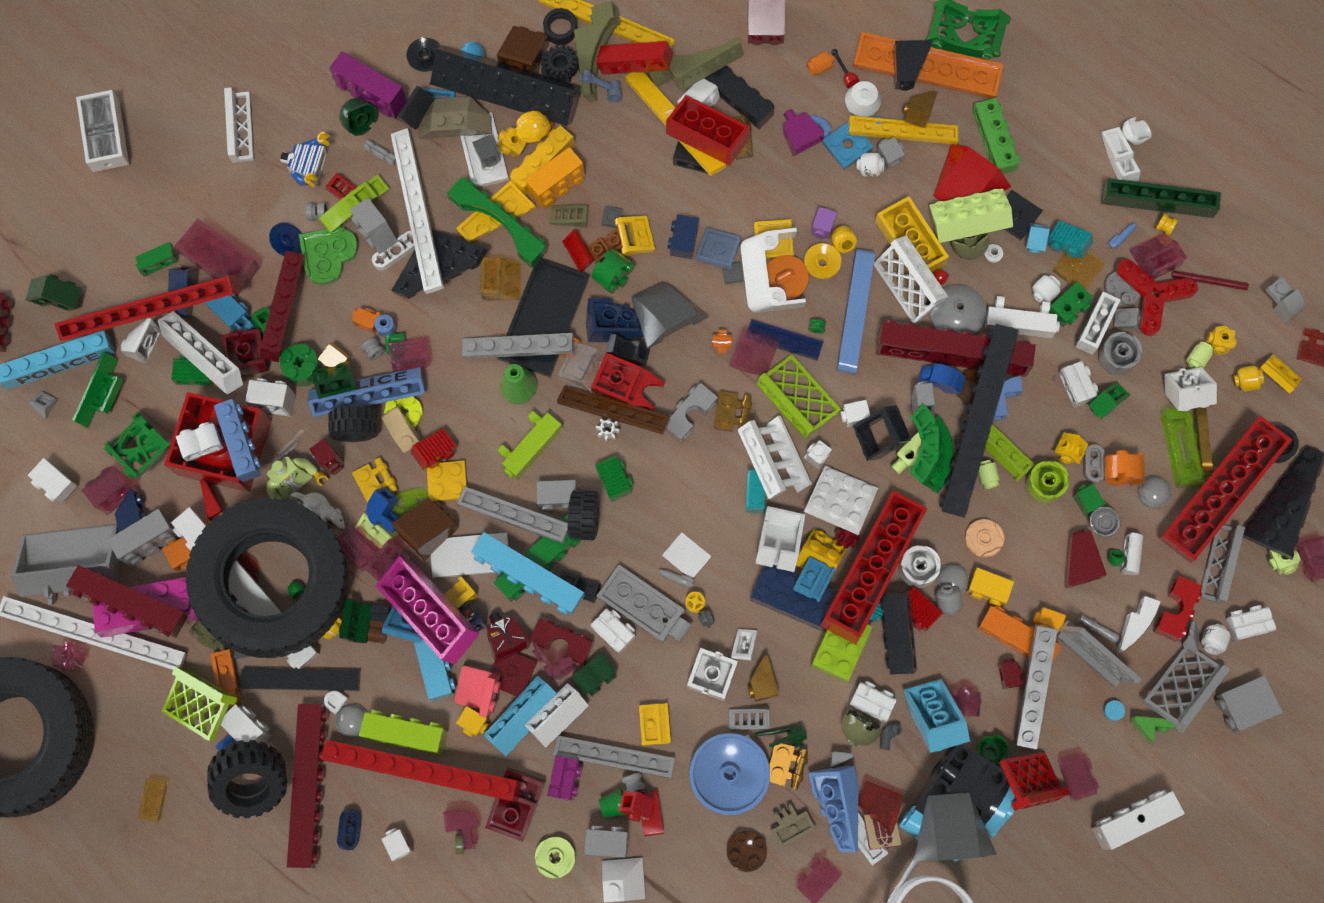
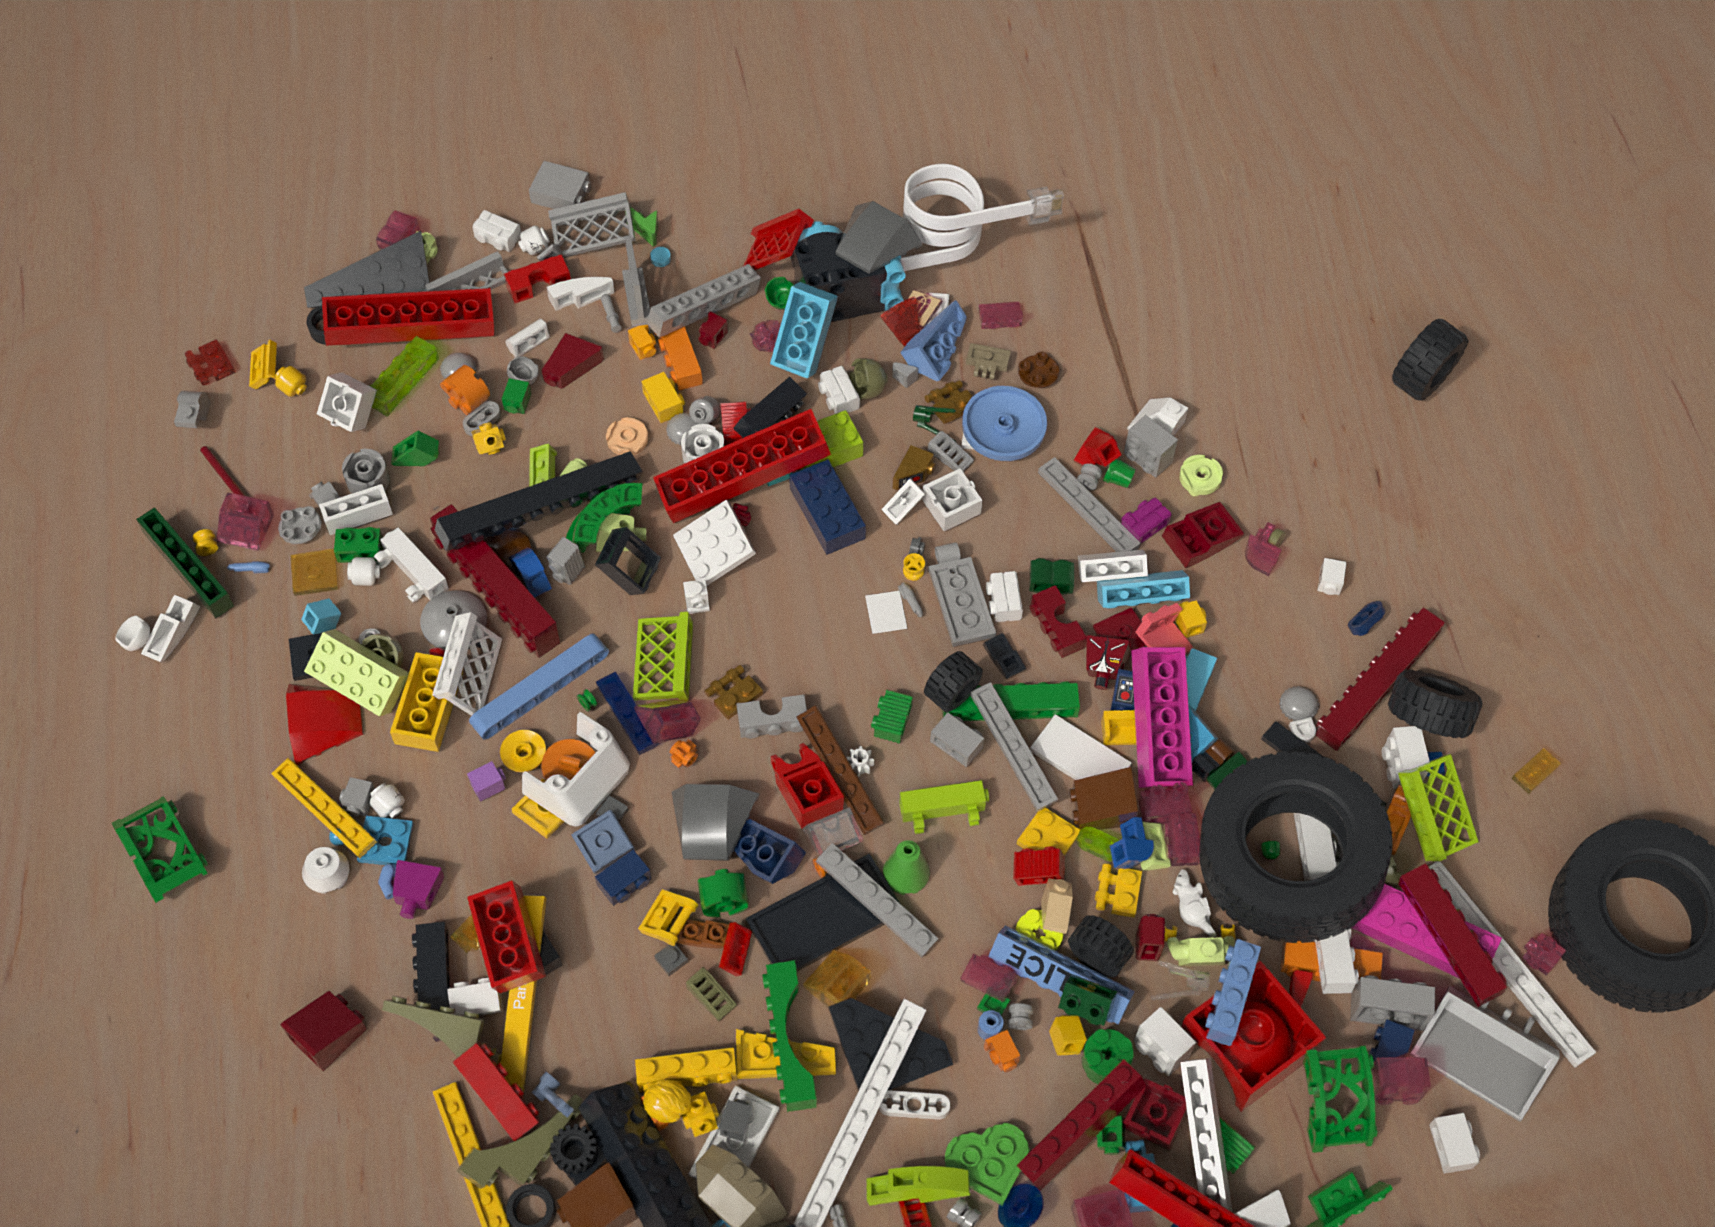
camera: 145 degrees left, 15 degrees down
(199, 442) = (1273, 1027): white brick -> none
(372, 226) = (920, 1135): light grey brick -> none
(403, 733) = (1260, 647): lime brick -> none
(421, 771) = (1269, 607): red brick -> none
(528, 573) = (1044, 683): medium azure brick -> none
(555, 178) = (690, 1030): light orange brick -> none
(563, 666) = (1077, 595): clear pink bracket -> none
(631, 351) = (776, 812): black brick -> none
(654, 724) = (1033, 505): yellow plate -> none
(755, 494) = (779, 607): teal brick -> none
(762, 460) = (749, 620): white fence -> none
(780, 539) = (797, 546): white piece -> none
(814, 579) = (801, 491): dark azure plate -> none
(820, 63) = (325, 939): orange brick -> none
(822, 549) = (773, 520): yellow slope -> none
(844, 239) = (484, 750): yellow head -> none
(850, 78) = (314, 902): red hinge -> none
(854, 412) = (630, 603): white brick -> none
(887, 734) = (840, 361): dark grey arm -> none
(909, 61) = (249, 857): black slope -> none
(920, 109) = (288, 806): pearl gold slope -> none
(941, 67) = (233, 853): orange plate -> none
(995, 135) = (251, 733): bright green brick -> none
(1046, 471) = (534, 428): lime brick -> none
(1070, 239) = (297, 589): teal brick -> none
(1078, 384) = (425, 481): white brick -> none
(1078, 777) = (735, 234): clear pink brick -> none
(1116, 558) = (539, 347): green hinge -> none
(1138, 820) = (724, 175): white brick -> none
(1153, 306) = (284, 507): red piece -> none
(1200, 355) = (306, 426): yellowish green brick -> none
(1204, 439) = (382, 360): pearl gold beam -> none
(1222, 340) = (276, 422): yellow brick -> none

